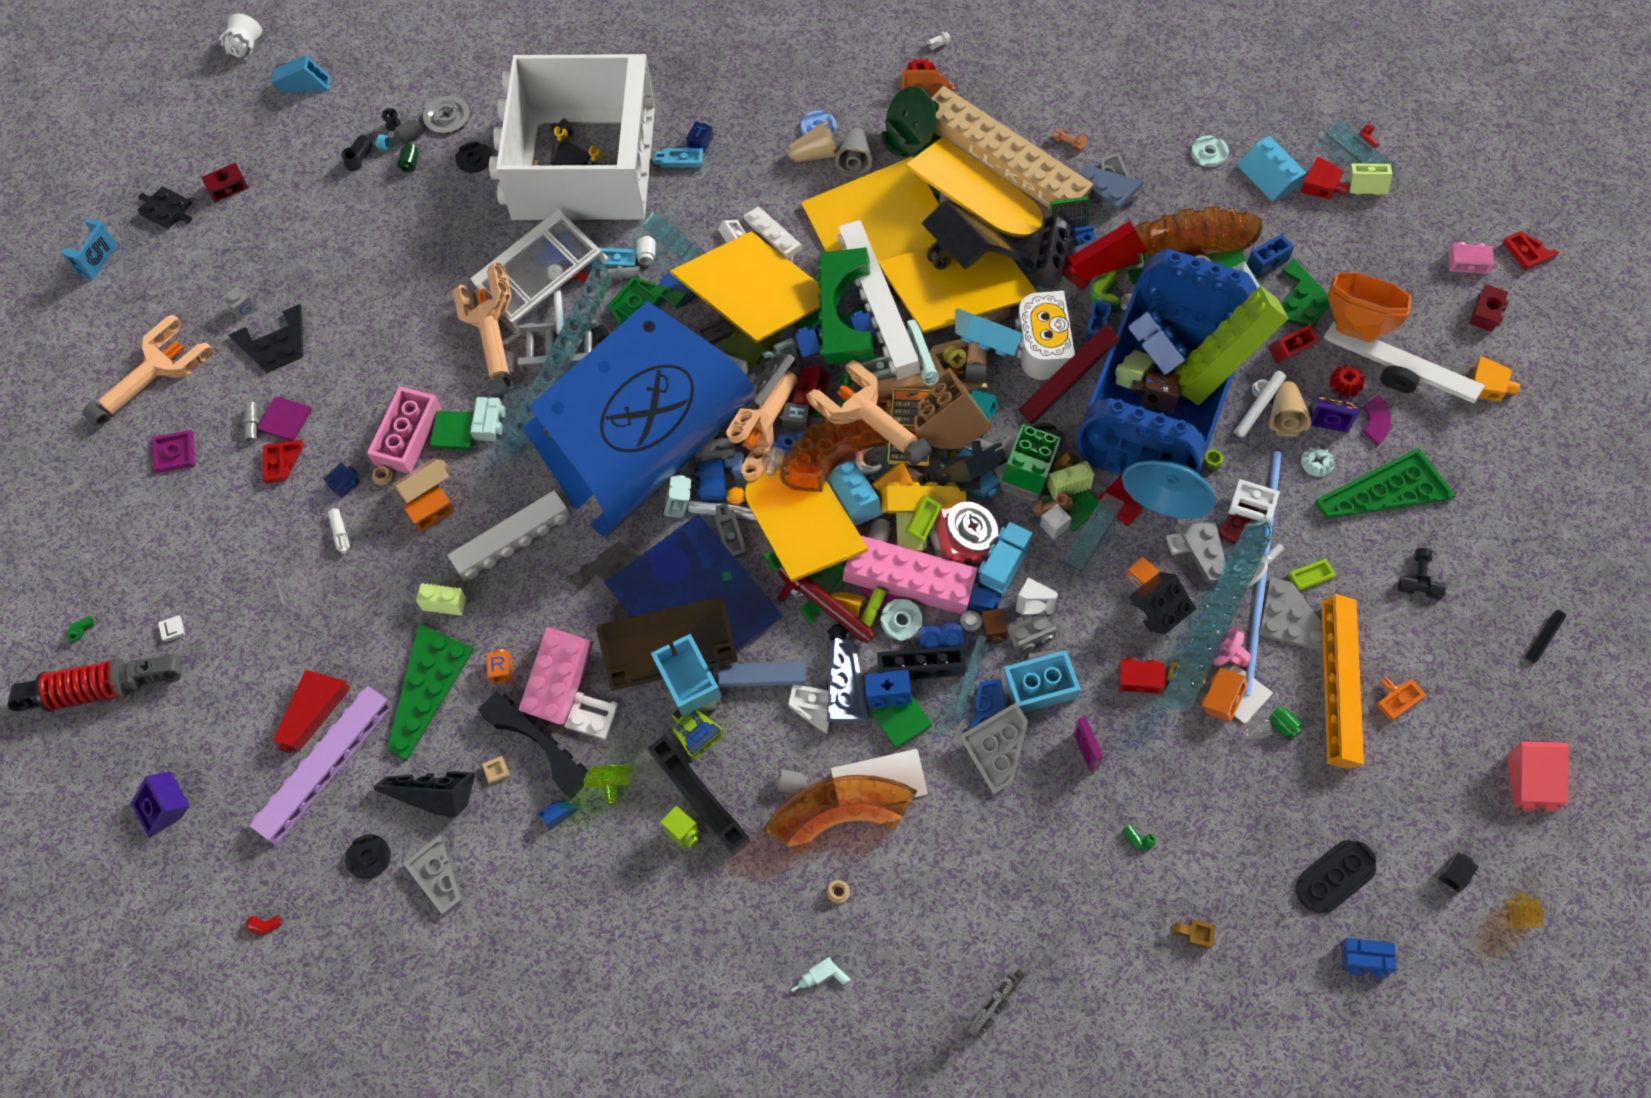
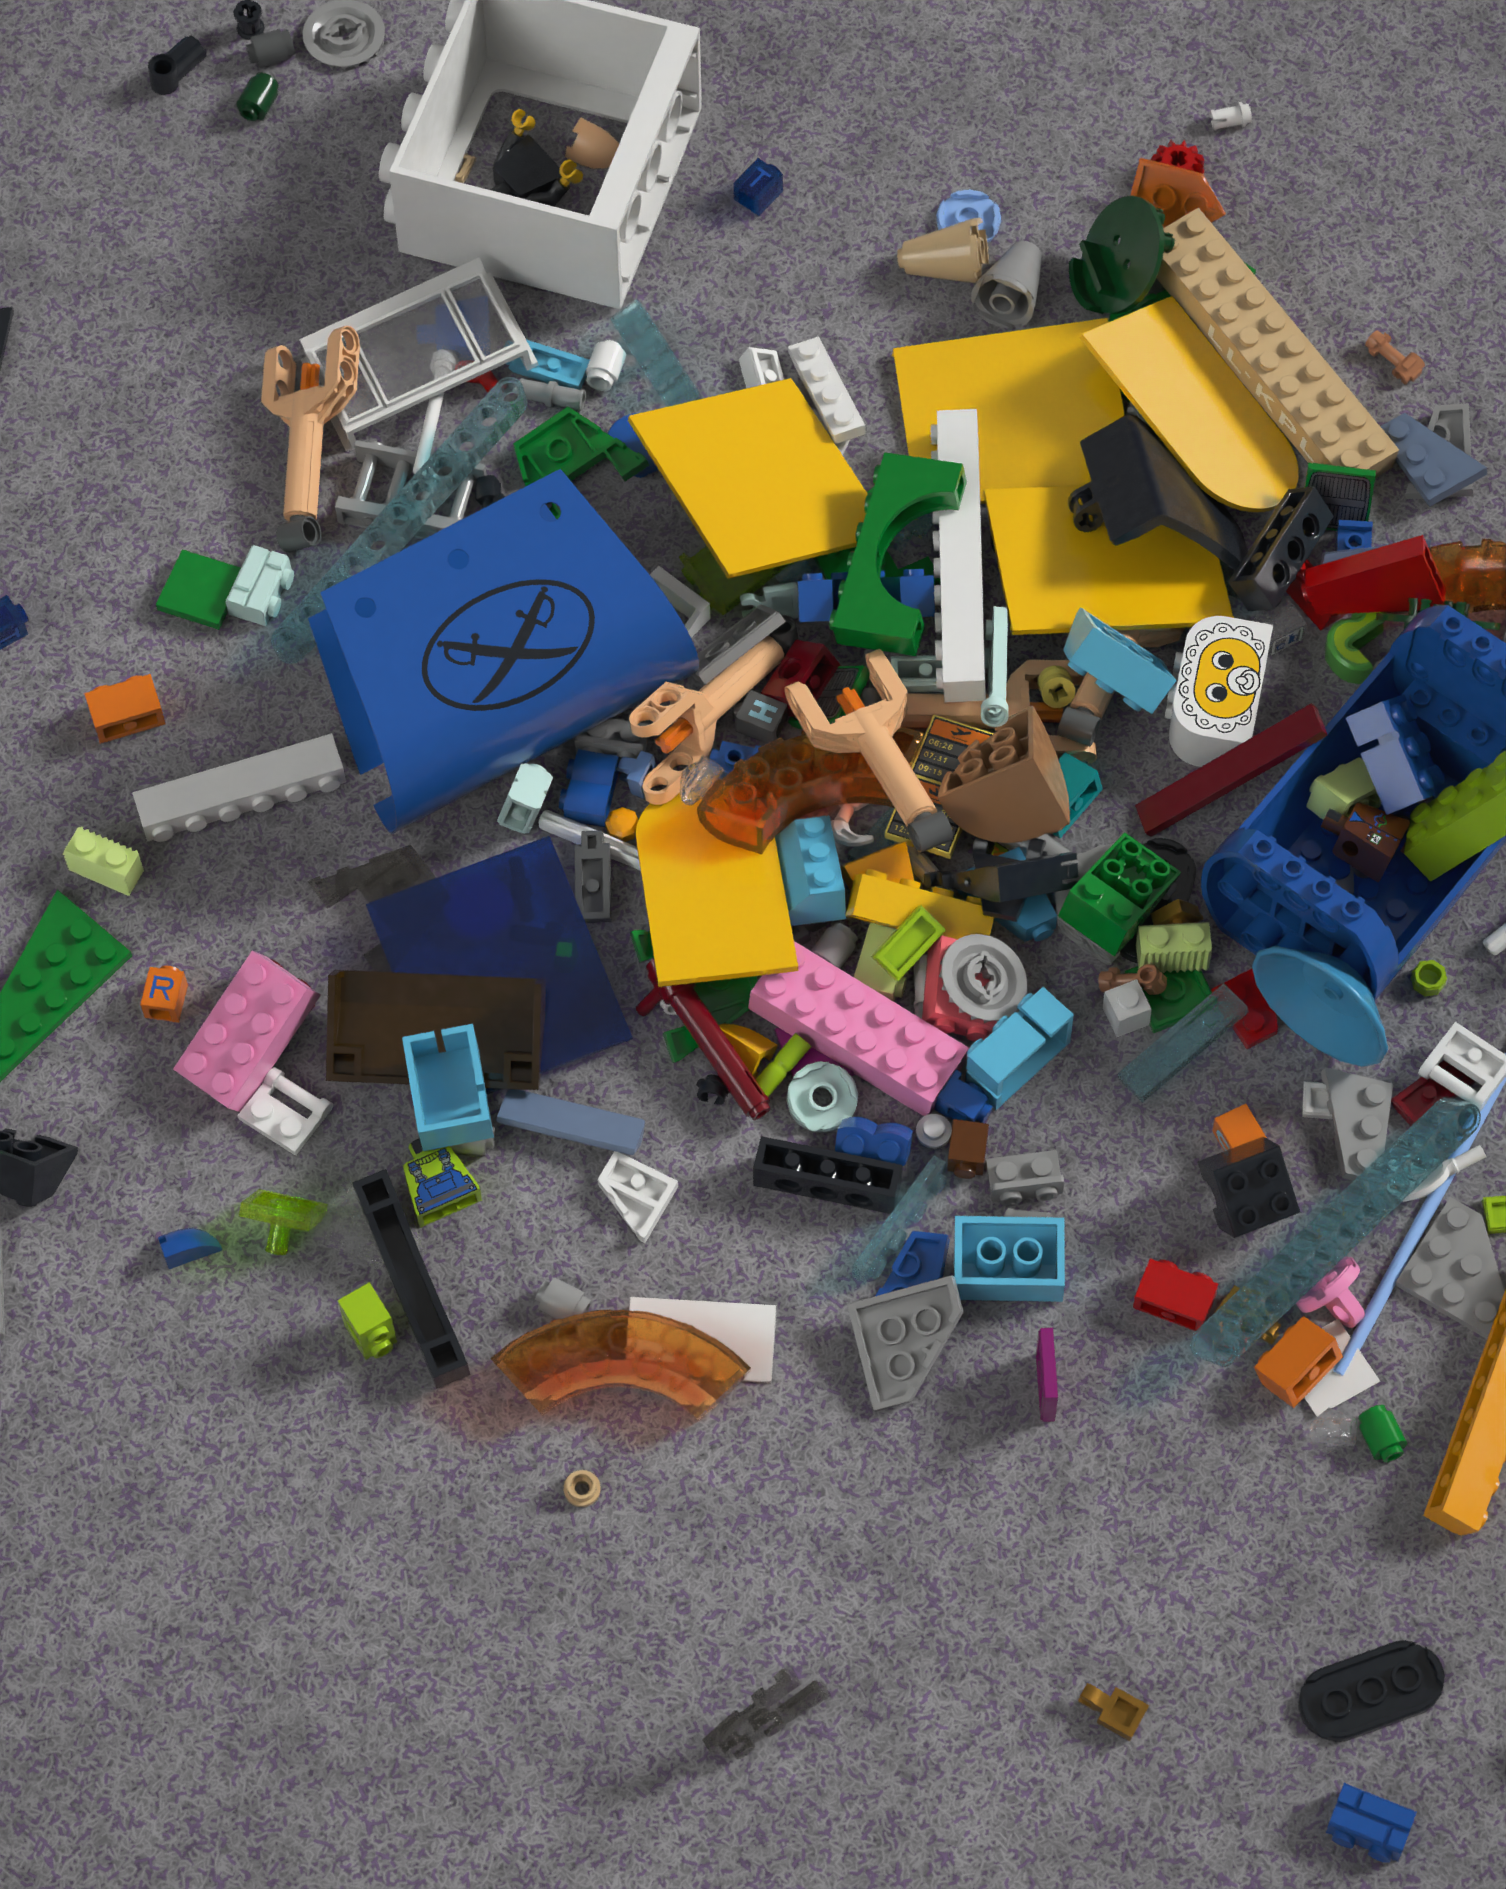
camera: 15 degrees right, 0 degrees up
(378, 472) = (62, 625): tan plate -> none
(382, 141) = (221, 55): medium azure plate -> none
(404, 430) = (121, 568): bright pink brick -> none
(421, 479) = (126, 658): tan brick -> none
(473, 163) = (370, 131): black tile -> none
(495, 770) = (112, 1153): tan tile -> none
(503, 716) = (148, 1073): black arch -> none
(563, 124) = (532, 107): black wheel -> none
(603, 138) = (592, 146): none -> light nougat brick
(679, 158) = (712, 214): medium azure hinge -> none
(716, 330) = (671, 538): dark grey plate -> none
(820, 974) = (516, 1601): light aqua piece -> none
(845, 688) = (696, 1178): sand blue wing -> none
(888, 689) = (761, 1199): blue brick -> none
(902, 722) = (769, 1254): green tile -> none
(1029, 597) = (1039, 1122): white tile -> none
(1098, 318) = (1324, 687): blue brick -> none
(1138, 841) = (1077, 1548): green arm -> none

